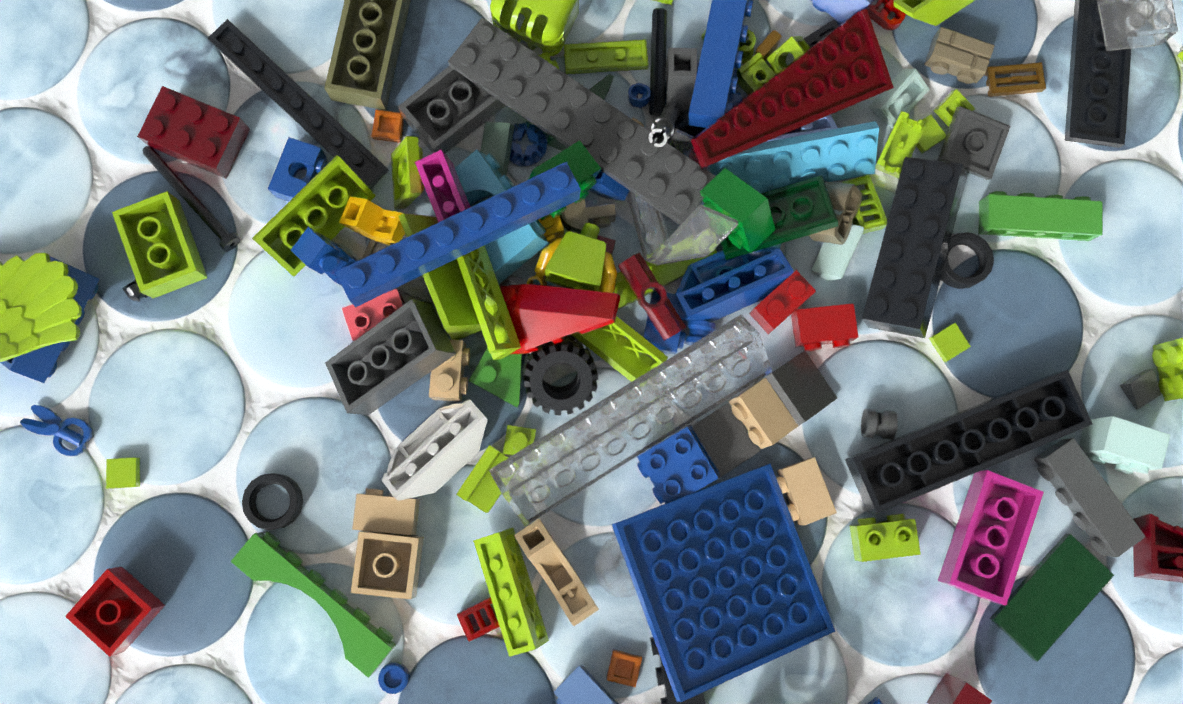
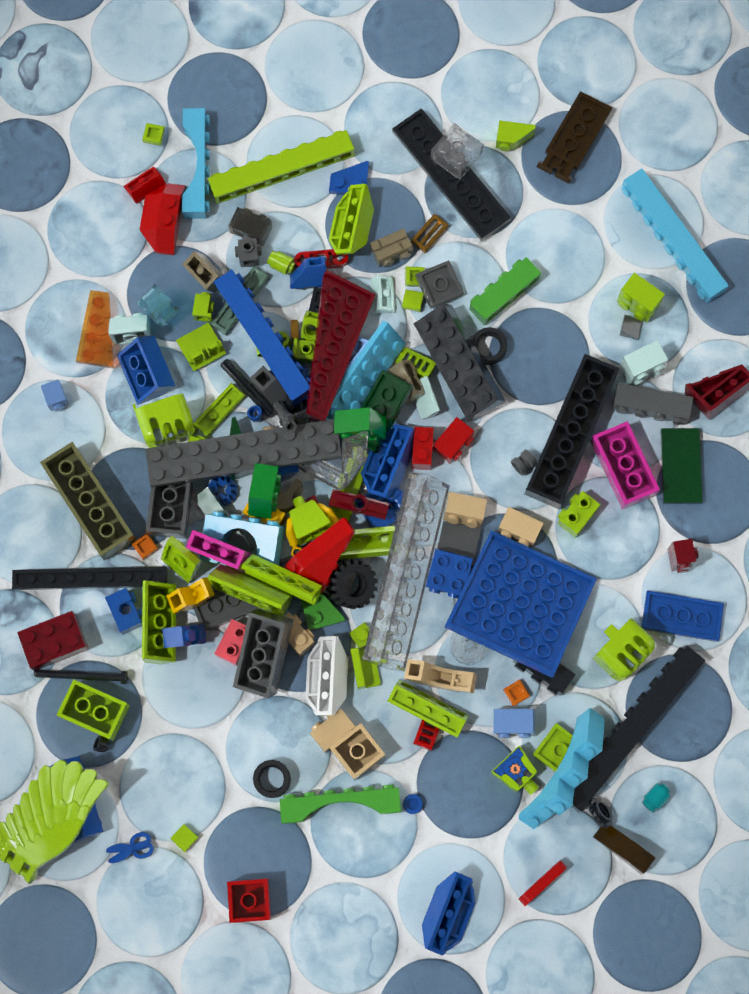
camera: 35 degrees left, 5 degrees down
(459, 234) = (246, 558): blue brick -> none
(801, 387) = (471, 480): dark grey tile -> none
(900, 144) = (405, 318): lime hinge -> none
(949, 342) = (520, 391): lime tile -> none

